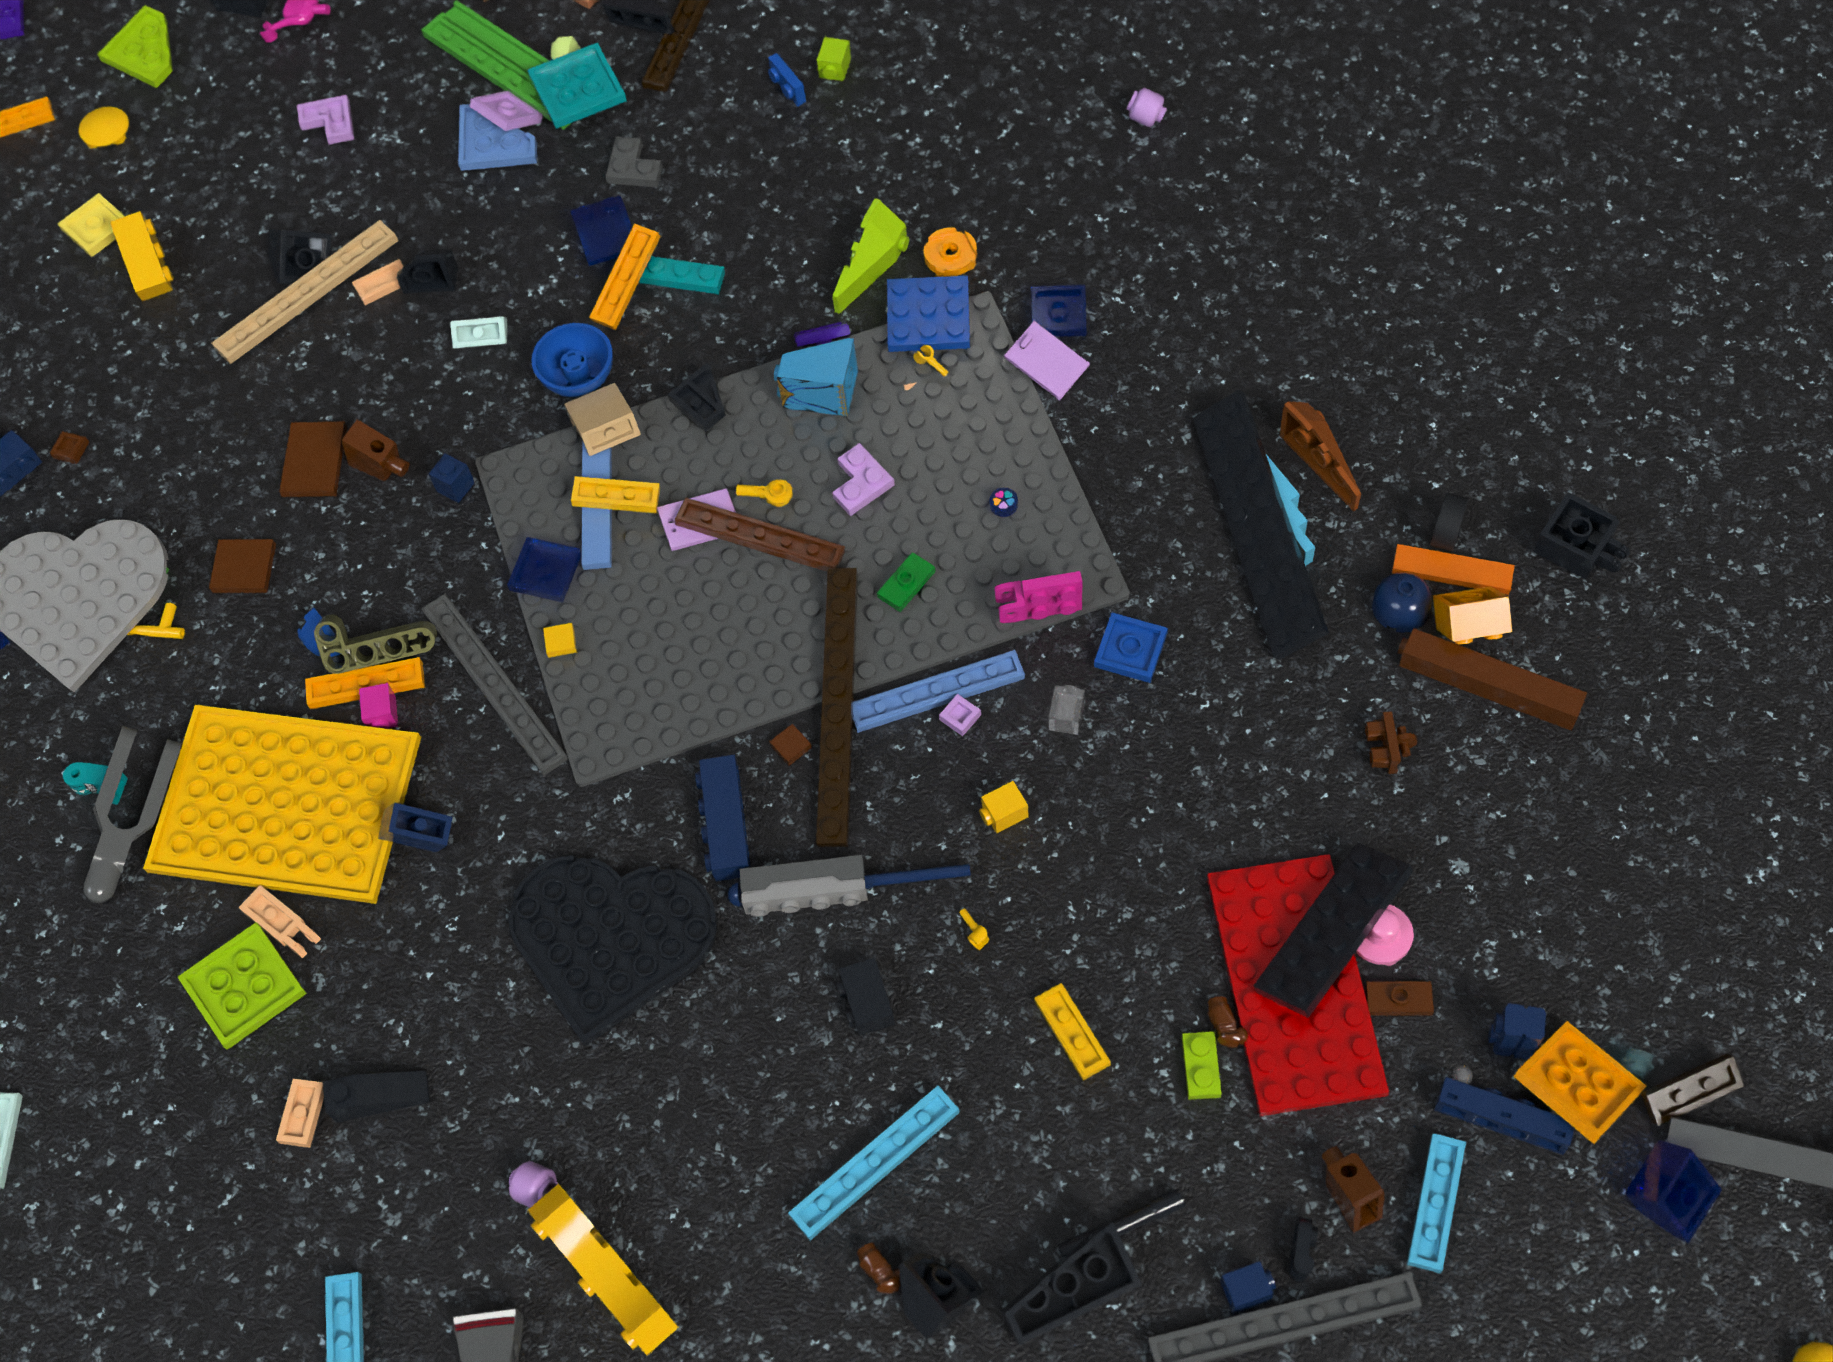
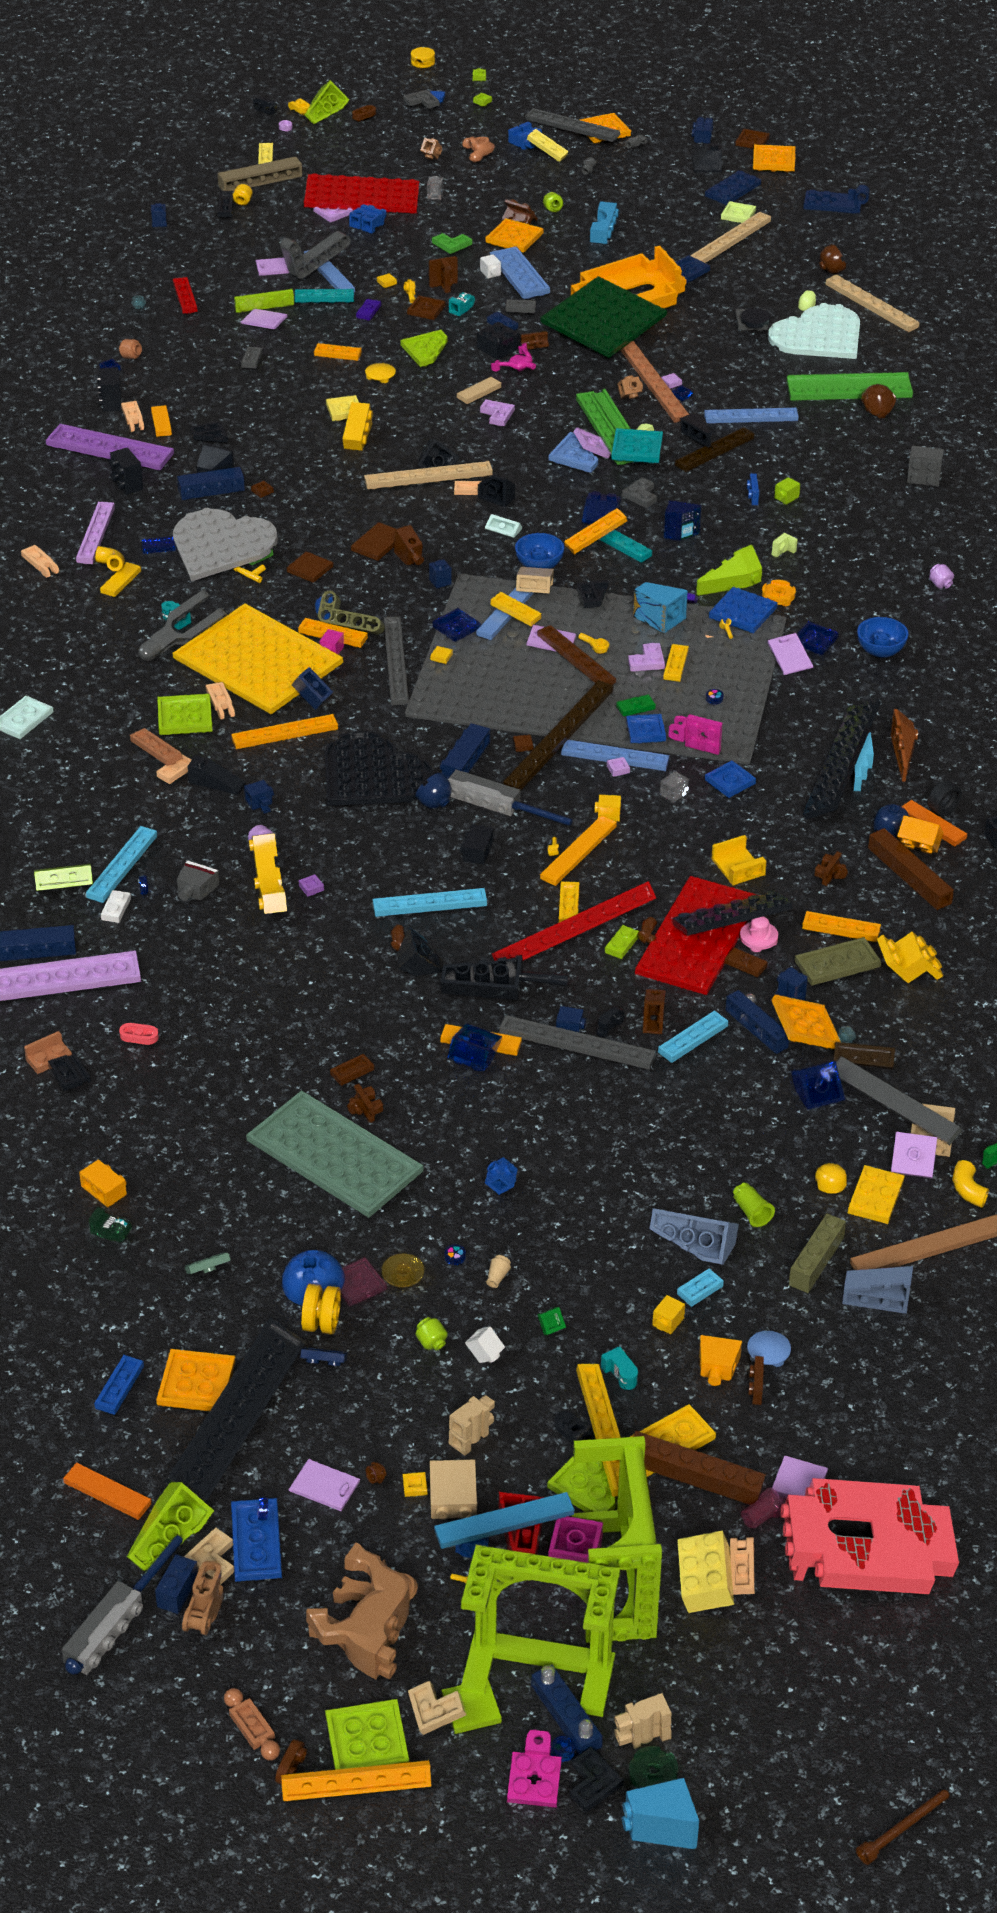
camera: 25 degrees right, 20 degrees down
(243, 1089) = (156, 747): none -> nougat plate
(273, 89) = (479, 390): none -> tan tile
(418, 928) = (284, 731): none -> light orange tile
(471, 1093) = (259, 795): none -> dark blue brick
(673, 1237) = (311, 885): none -> medium lavender plate
(733, 193) = (682, 520): none -> clear blue slope
(739, 931) = (435, 792): none -> dark blue cylinder
(899, 156) = (784, 543): none -> yellowish green bracket
(905, 466) = (676, 662): none -> yellow tile
(954, 622) = (646, 728): none -> blue plate
(1014, 916) = (578, 850): none -> light orange tile
(1116, 1085) = (578, 923): none -> red plate
(1156, 263) = (882, 636): none -> blue piece
(1251, 804) = (736, 861): none -> yellow panel
(1479, 847) = (841, 926): none -> light orange plate
(1523, 920) = (837, 961): none -> olive plate
(1623, 859) = (910, 957): none -> yellow bracket

